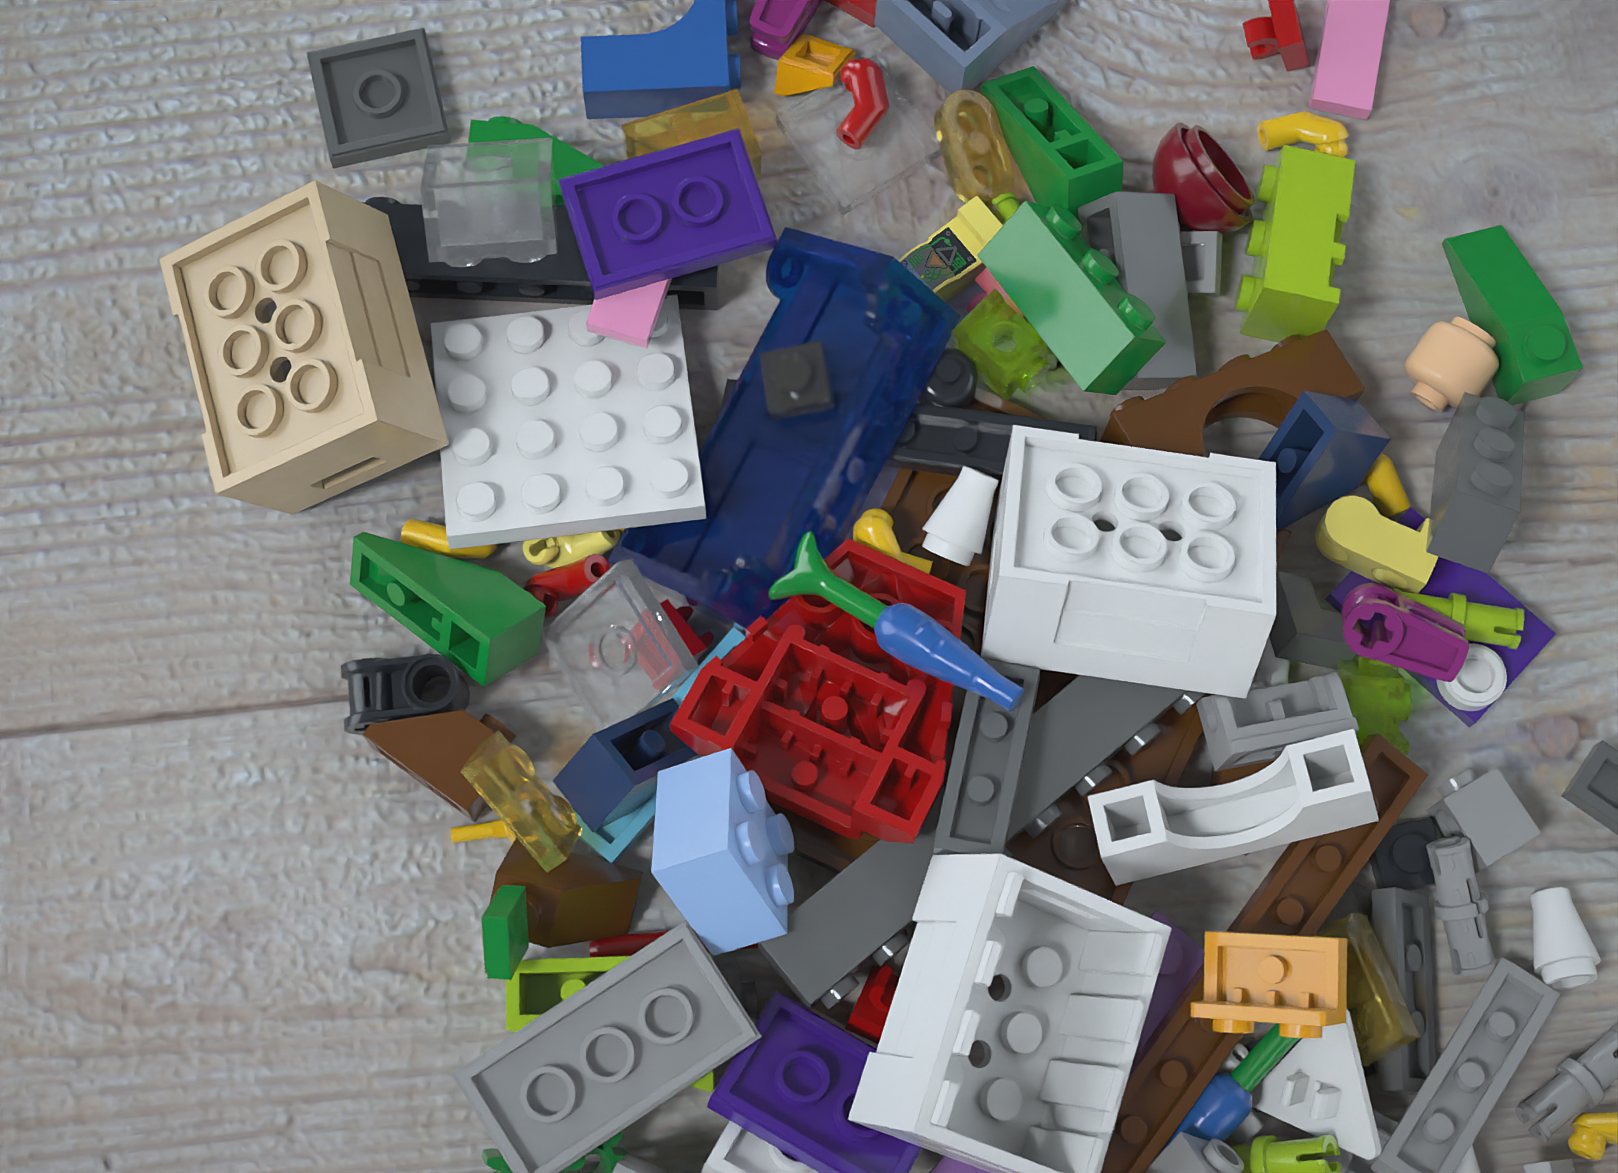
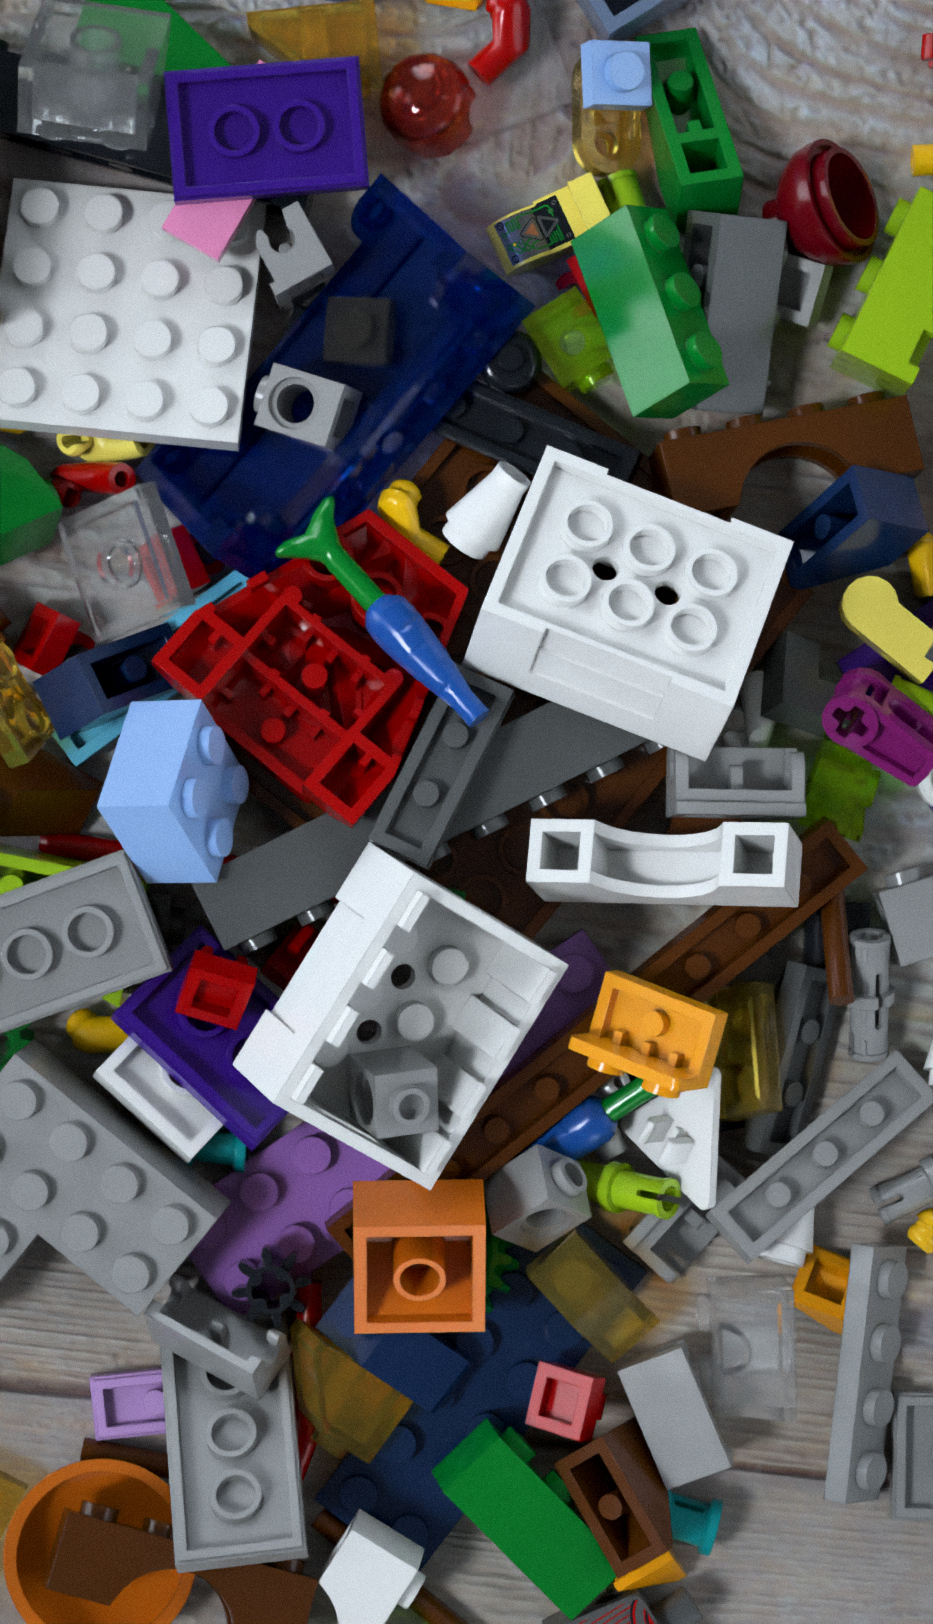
camera: 15 degrees right, 15 degrees up
(555, 741) = (47, 639): none -> red tile
(691, 1133) = (94, 1032): none -> yellow arm
(726, 331) = (299, 270): none -> light grey hinge
(784, 472) = (332, 411): none -> light grey brick
(808, 176) = (427, 104): none -> clear red hair
(812, 1046) = (216, 988): none -> red tile
(977, 110) = (616, 75): none -> light blue plate
(1026, 1105) = (393, 1092): none -> light grey brick
(1421, 867) = (837, 951): none -> reddish brown bar

